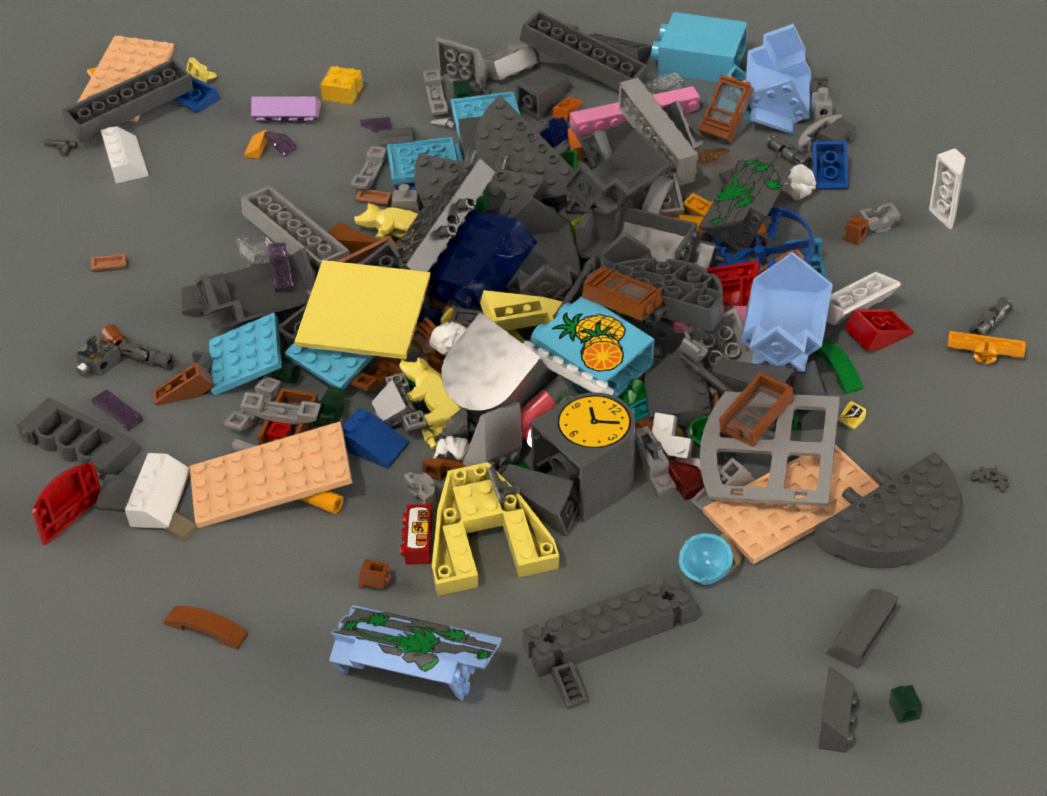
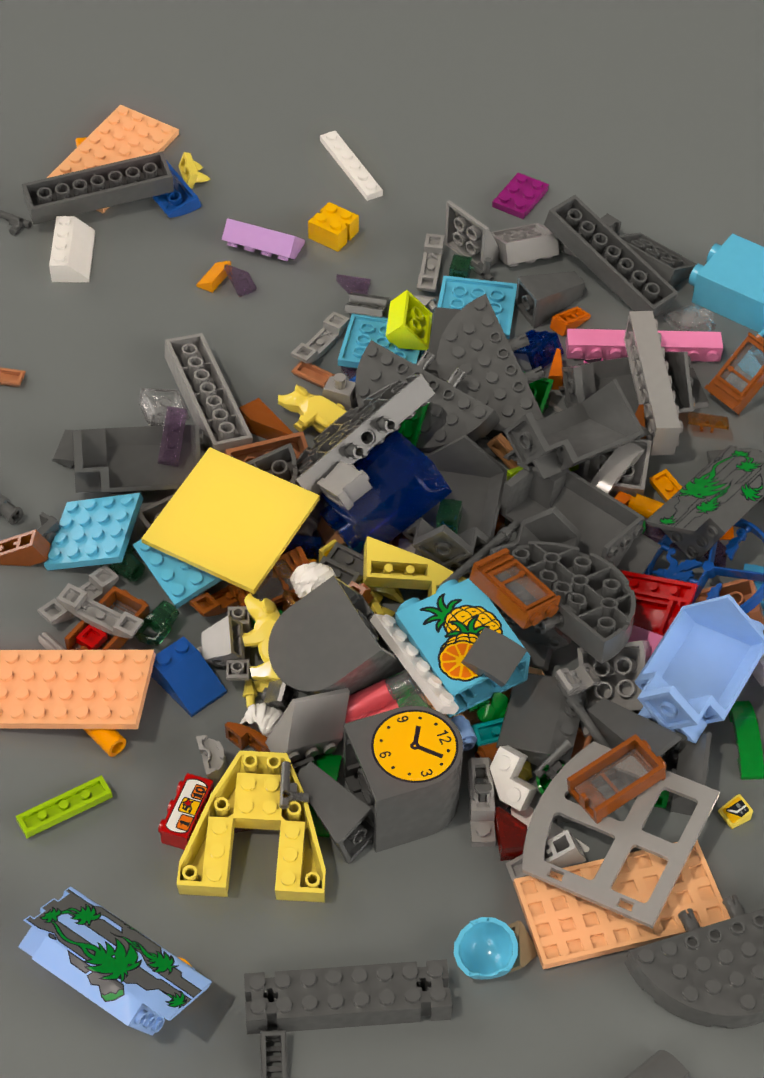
camera: 15 degrees right, 5 degrees up
(312, 559) = (63, 806): none -> lime plate
(334, 38) = (351, 165): none -> white plate
(374, 574) = (119, 847): dark orange brick -> none
(439, 138) = (409, 323): none -> neon yellow slope
(448, 259) = (345, 485): none -> light grey hips
(485, 28) = (520, 195): none -> magenta plate
(537, 260) = (449, 514): none -> clear green brick
(560, 207) = (501, 447): none -> medium nougat tile
(627, 345) = (494, 656): none -> dark grey slope
(699, 415) = (552, 761): none -> dark grey hose

